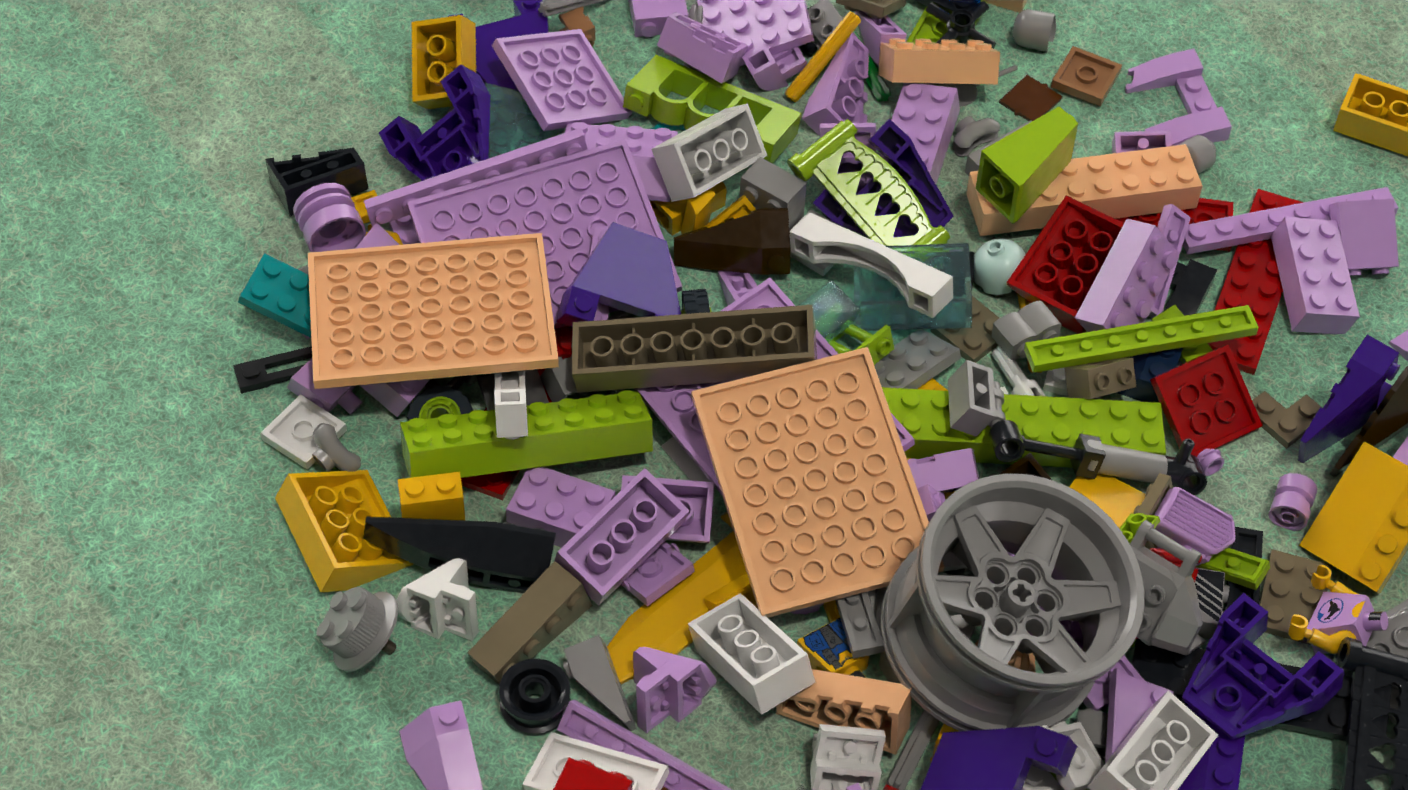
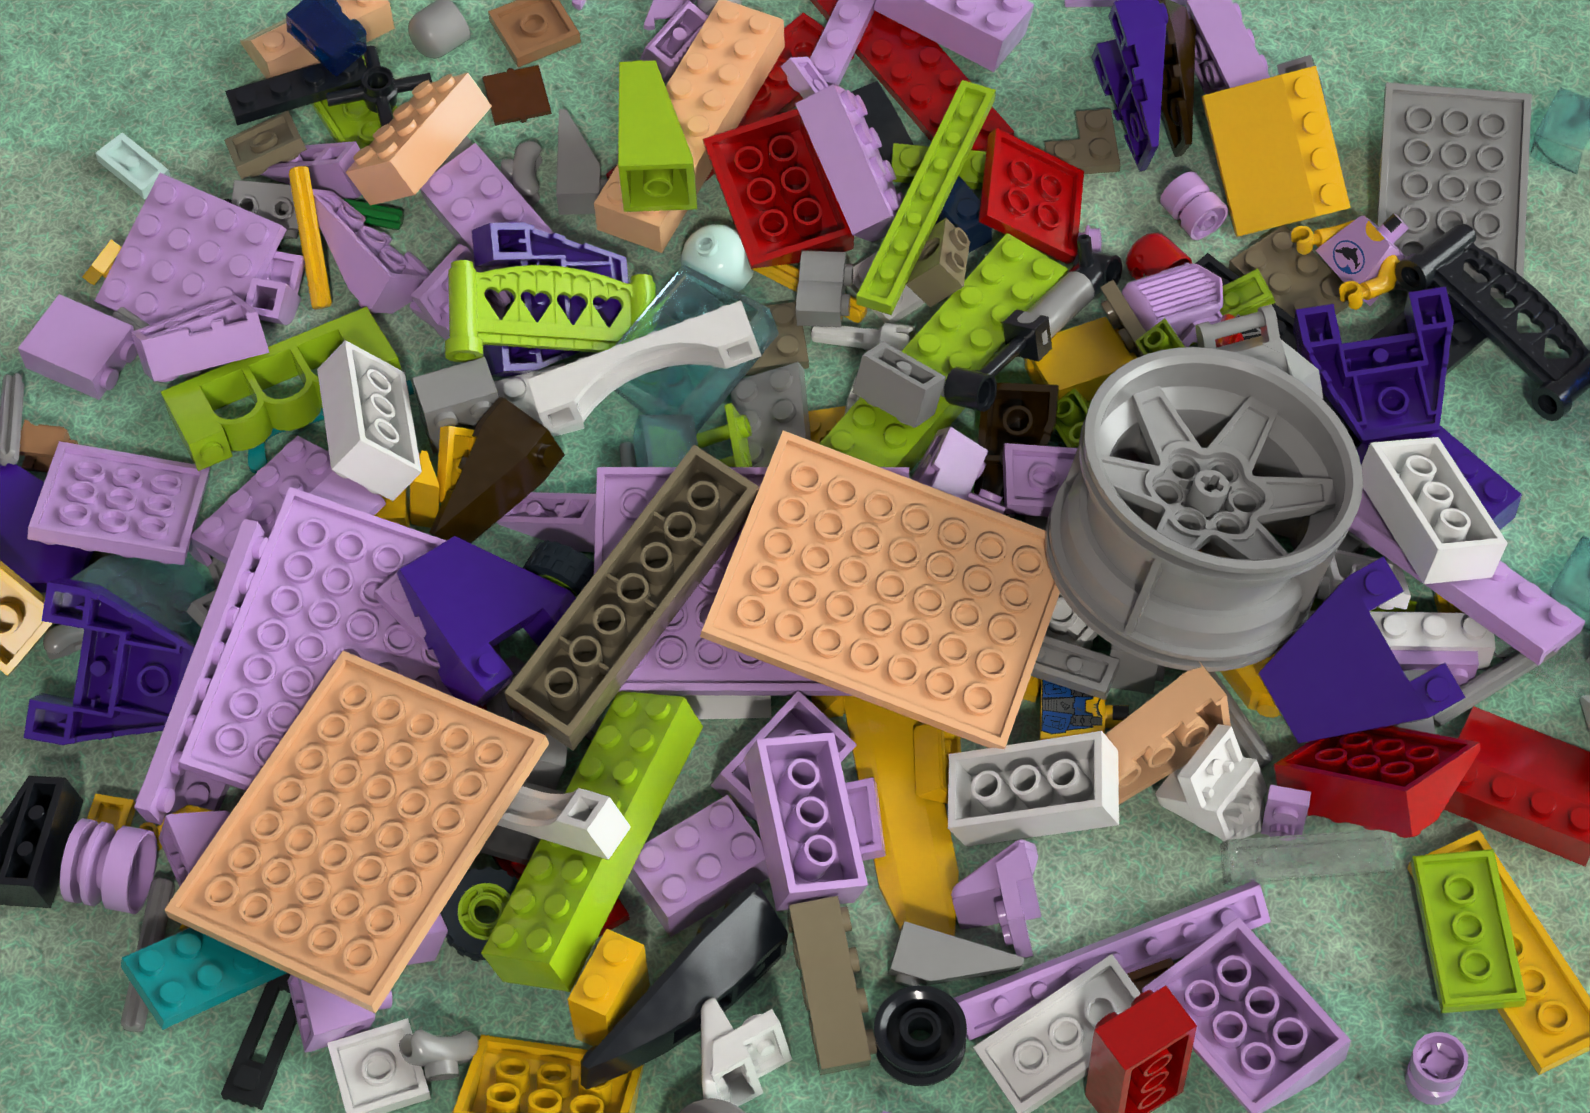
camera: 50 degrees left, 5 degrees up
(1230, 497) = (1154, 254): none -> red helmet

